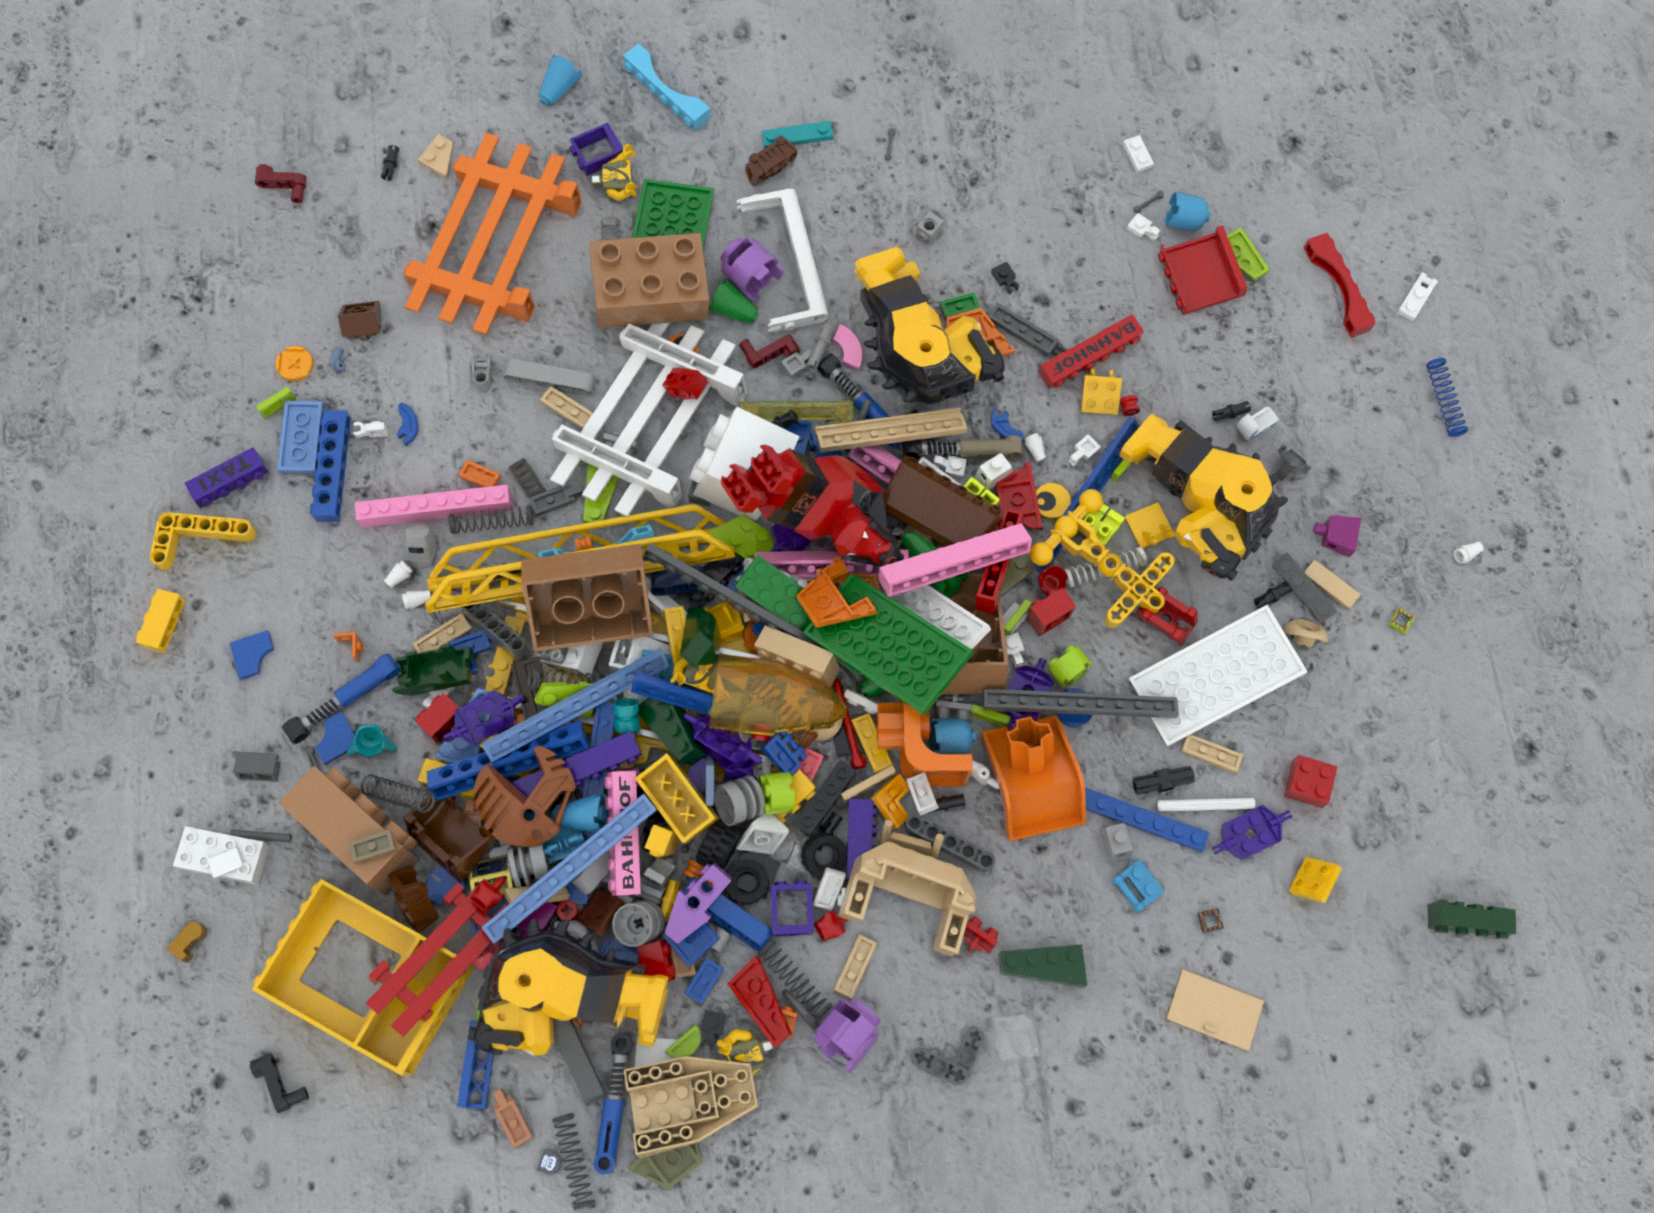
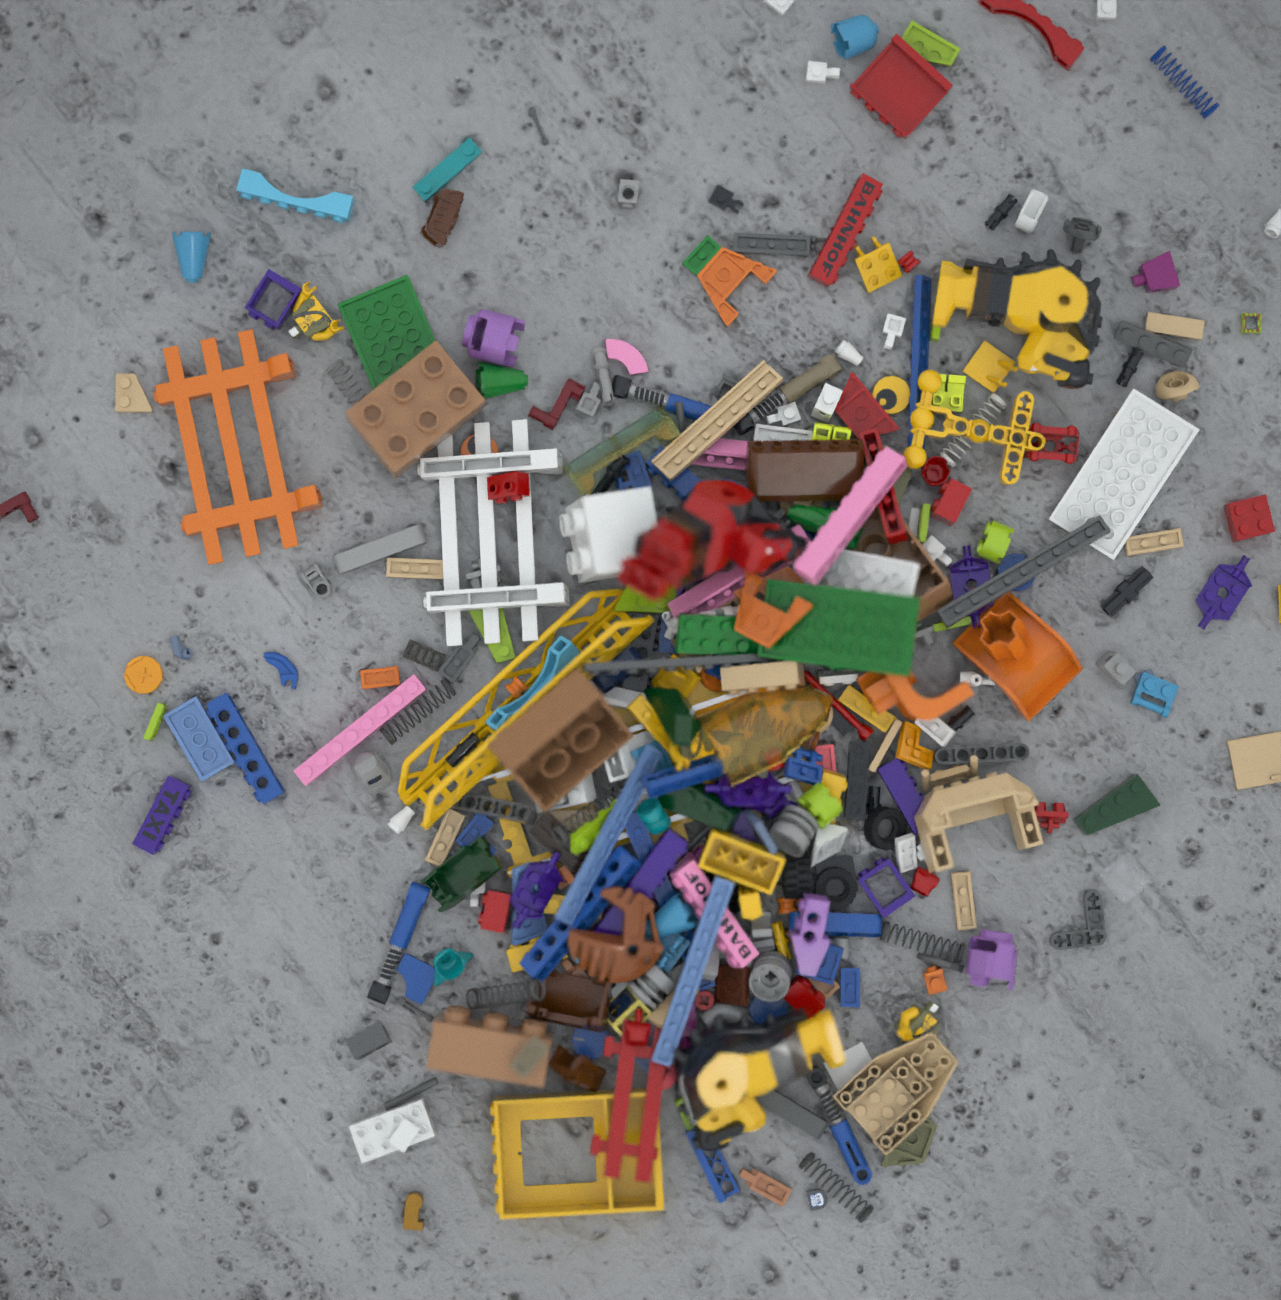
camera: 25 degrees left, 15 degrees up
(160, 620) = (197, 972): yellow brick -> none
(196, 529) = (170, 875): yellow beam -> none
(250, 652) = (292, 951): blue tile -> none
(267, 1067) = (546, 1265): black beam -> none
(357, 645) = (379, 889): orange bracket -> none
(360, 319) = (173, 597): reddish brown slope -> none
(372, 429) = (259, 692): white plate -> none
(390, 162) = (92, 430): black pin -> none
(398, 574) = (371, 807): white cone -> none
(686, 1045) = (867, 1045): lime tile -> none
(712, 1025) = (877, 1017): black plate -> none
(758, 998) = (903, 975): red wing -> none
(788, 201) = (529, 291): white piece -> none
(910, 341) = (684, 326): piece -> none
(950, 736) = (931, 664): dark azure cylinder -> none
(1002, 426) = (808, 350): blue piece -> none
(1146, 820) = (1130, 634): blue plate -> none
(1159, 195) = (816, 27): dark grey hinge -> none
(1206, 804) = (1172, 590): white axle -> none
(1210, 920) = (1229, 687): tile -> none

